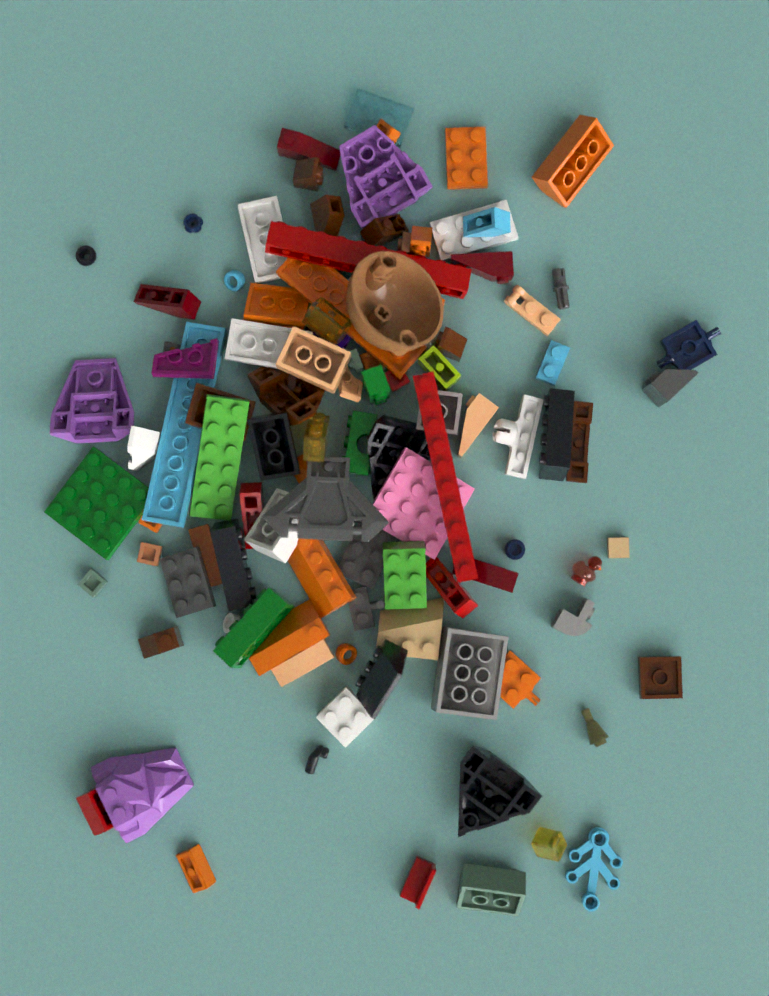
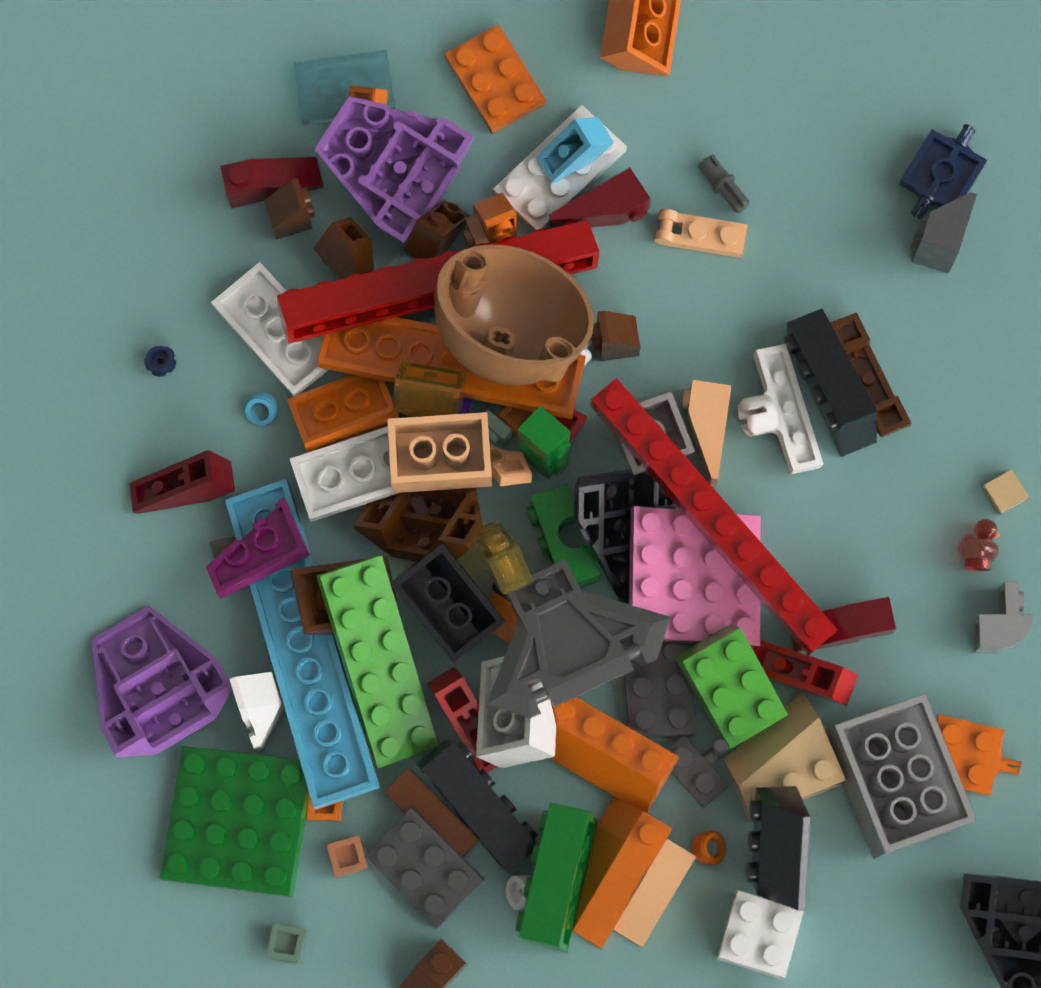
camera: 25 degrees left, 10 degrees down
(84, 250) = (27, 475): black plate -> none
(443, 370) = (606, 366): lime brick -> none
(514, 549) = (864, 571): dark blue plate -> none
(552, 363) = (769, 289): medium azure plate -> none

